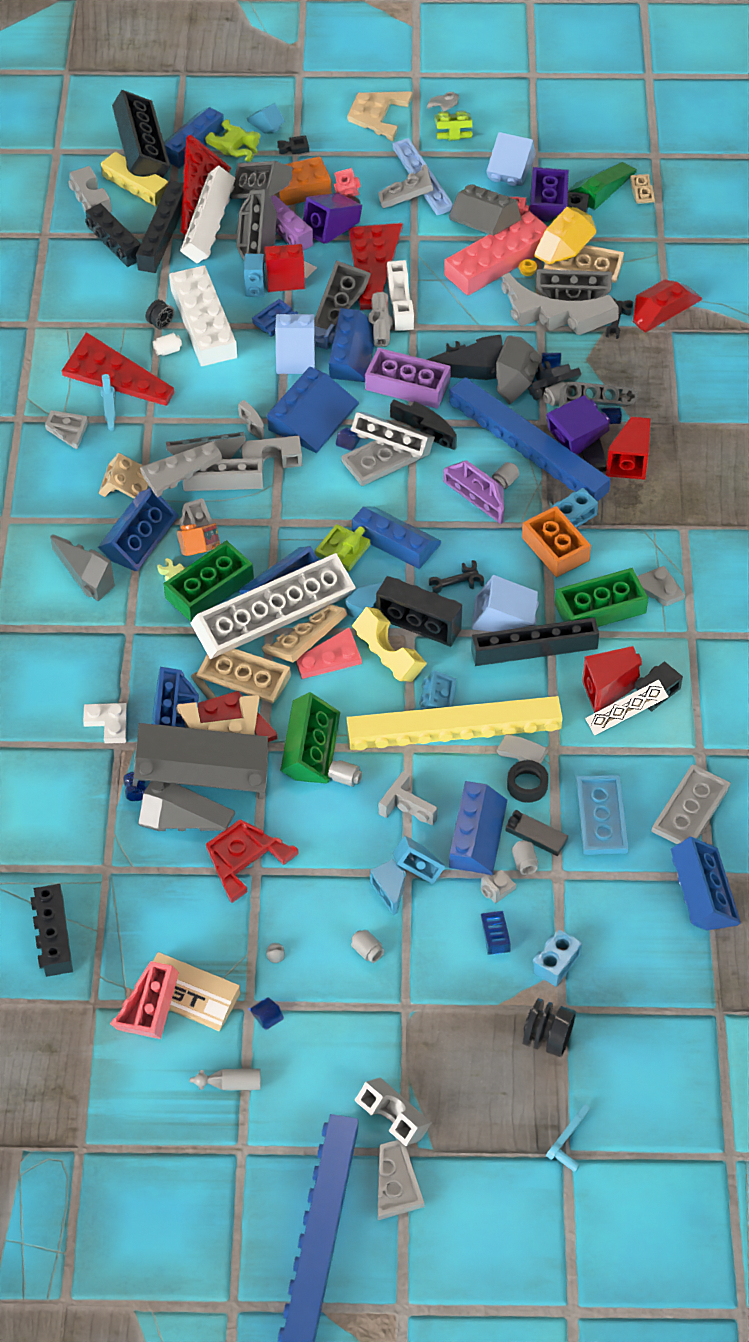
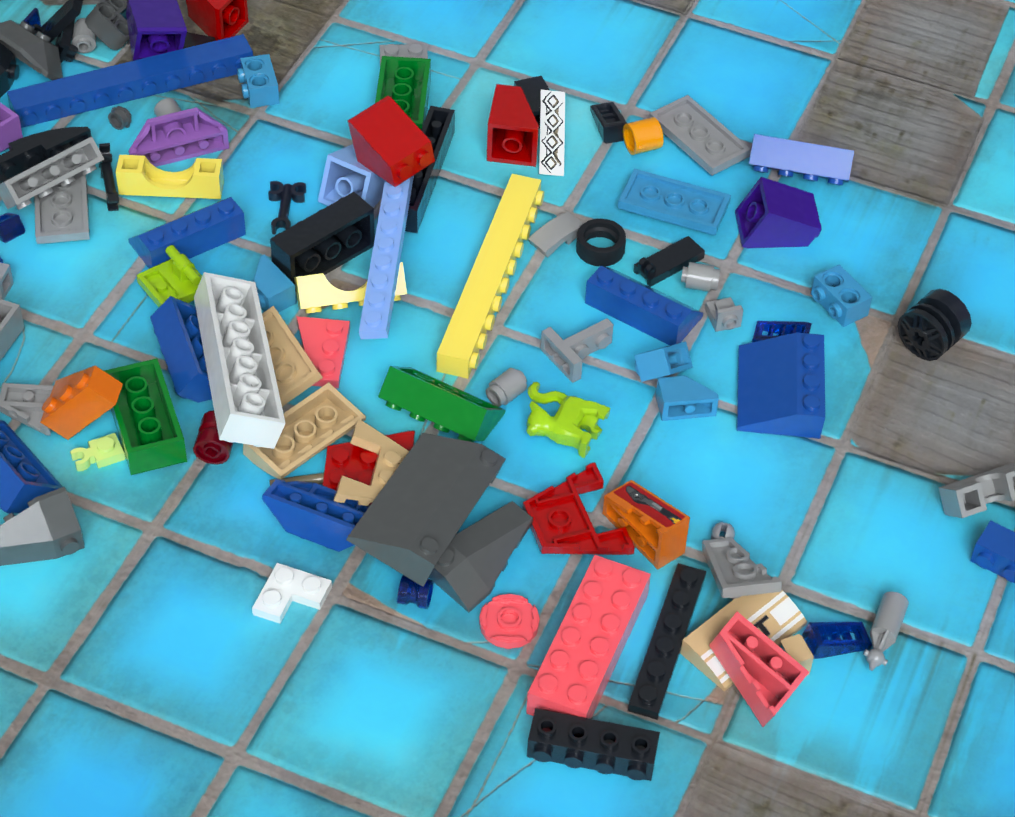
camera: 70 degrees left, 5 degrees down
(134, 899) = (589, 639): none -> coral brick
(139, 850) = (509, 621): none -> coral tile
(174, 946) = (667, 642): none -> black plate
(177, 1028) = (798, 650): none -> tan slope
(207, 1033) = (817, 640): none -> clear blue slope
(233, 964) = (735, 571): none -> light grey wing
(255, 899) = (652, 523): none -> orange wedge
(267, 1013) = (801, 569): clear blue slope -> none
(330, 820) = (568, 421): none -> lime animal
(367, 946) = (756, 445): light grey brick -> none
(426, 644) = (385, 261): none -> light blue plate
(430, 462) = (107, 174): none -> black bar
(437, 691) = (439, 275): dark azure bracket -> none
(439, 947) = (782, 386): none -> blue slope
(443, 515) = (141, 178): none -> light yellow arch
(488, 450) = (119, 118): none -> dark grey plate
(510, 601) = (390, 142): none -> red slope
(556, 541) = (297, 105): orange brick -> none
(621, 889) = (777, 216): none -> dark purple slope
(660, 767) = (643, 135): none -> light orange piece
(662, 751) = (608, 121): none -> black slope

